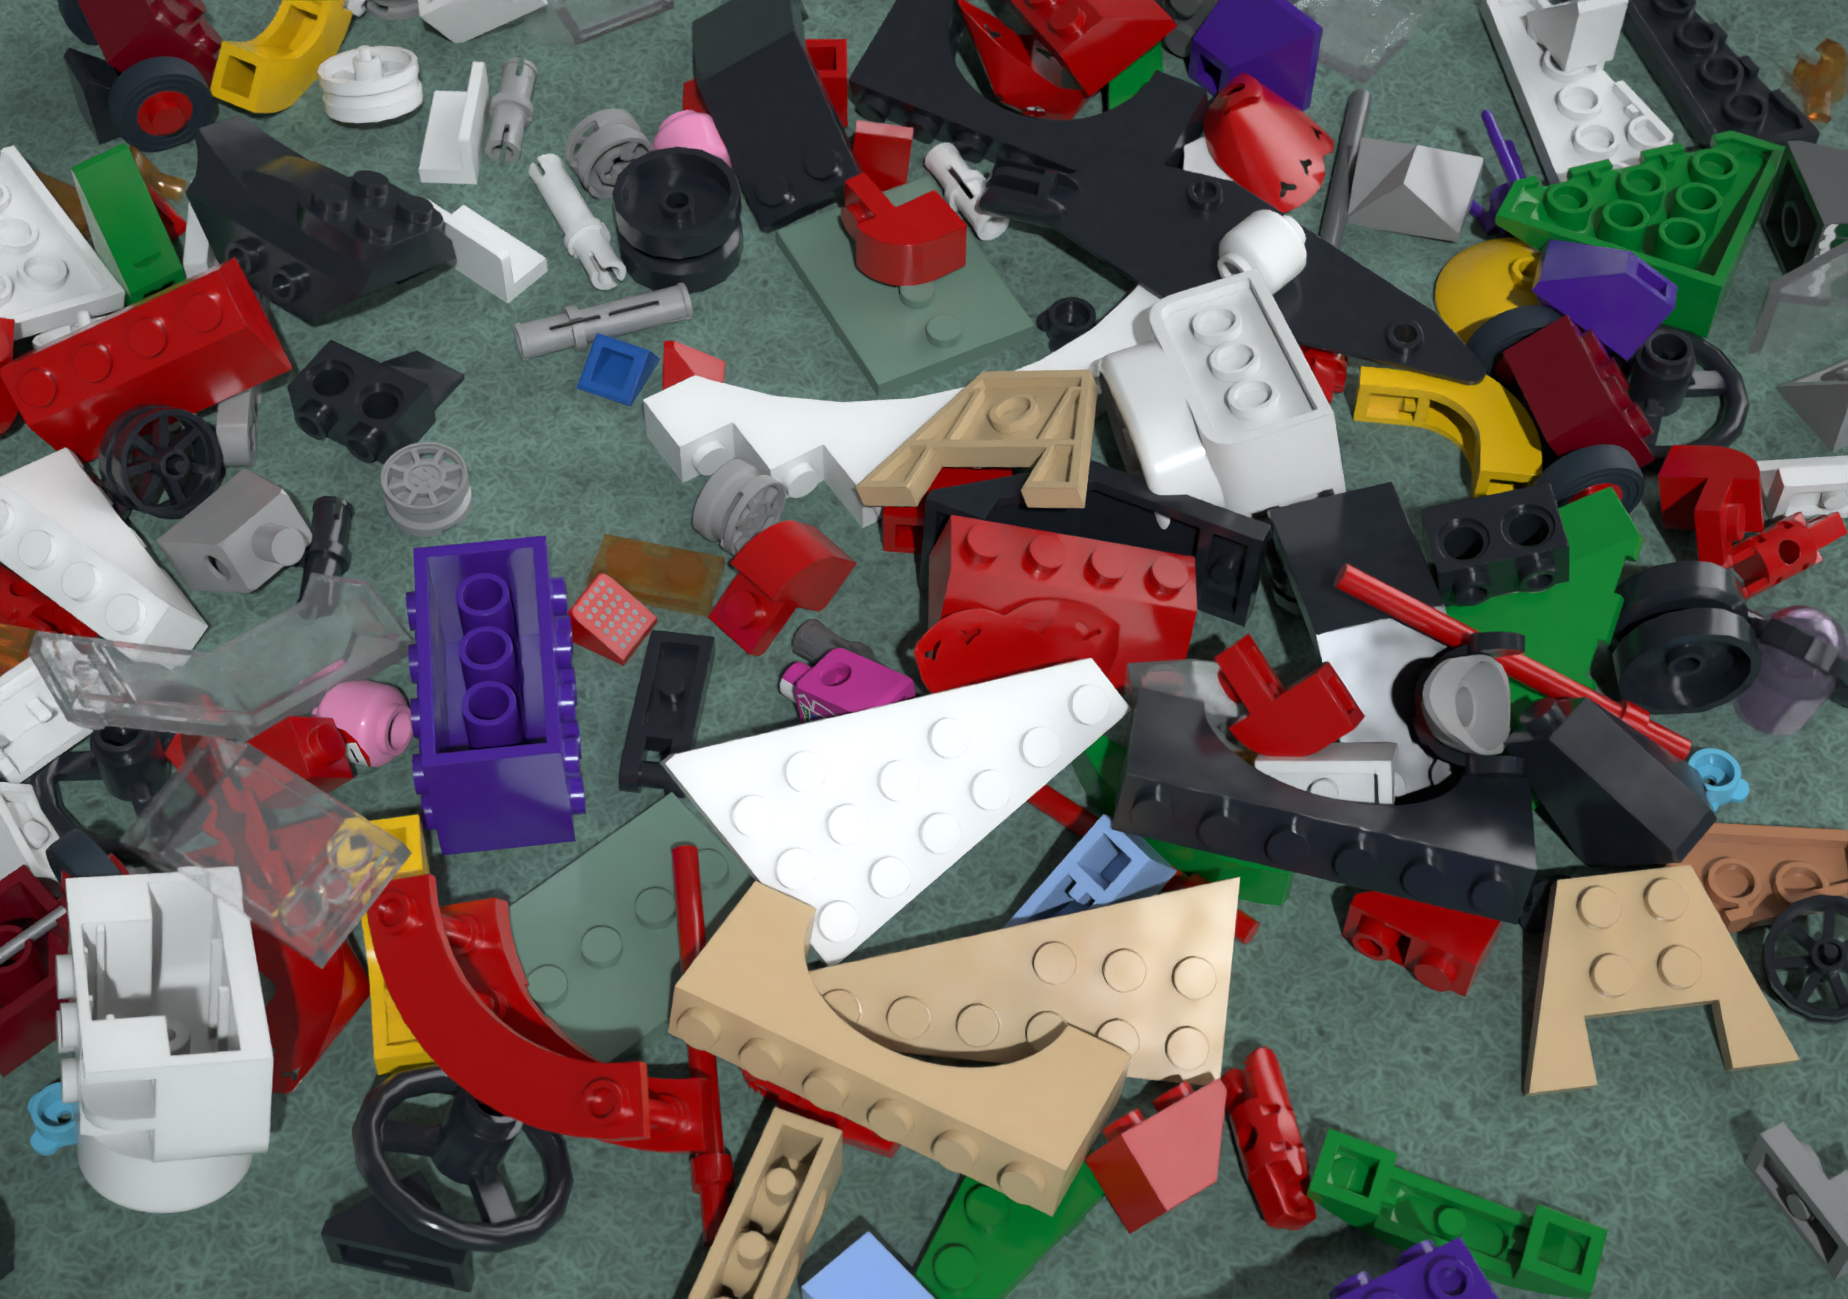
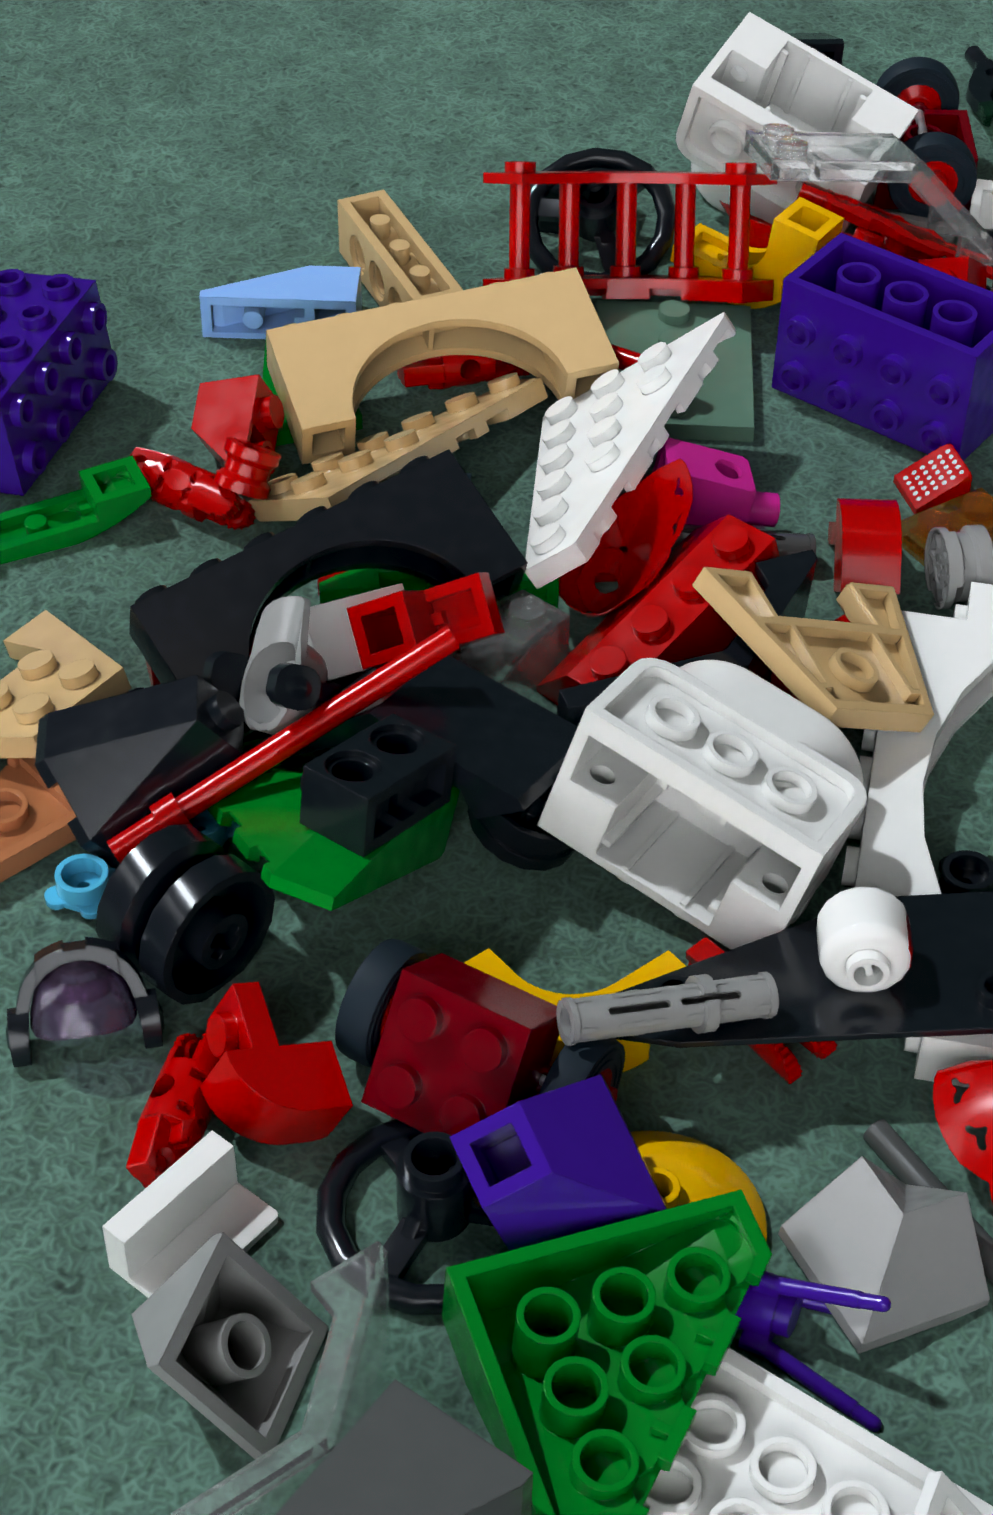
camera: 135 degrees right, 10 degrees down
(666, 707) = (820, 458): black plate -> none
(1251, 1041) = (247, 468): none -> red wheel
(1419, 294) = (696, 1004): none -> light grey pin

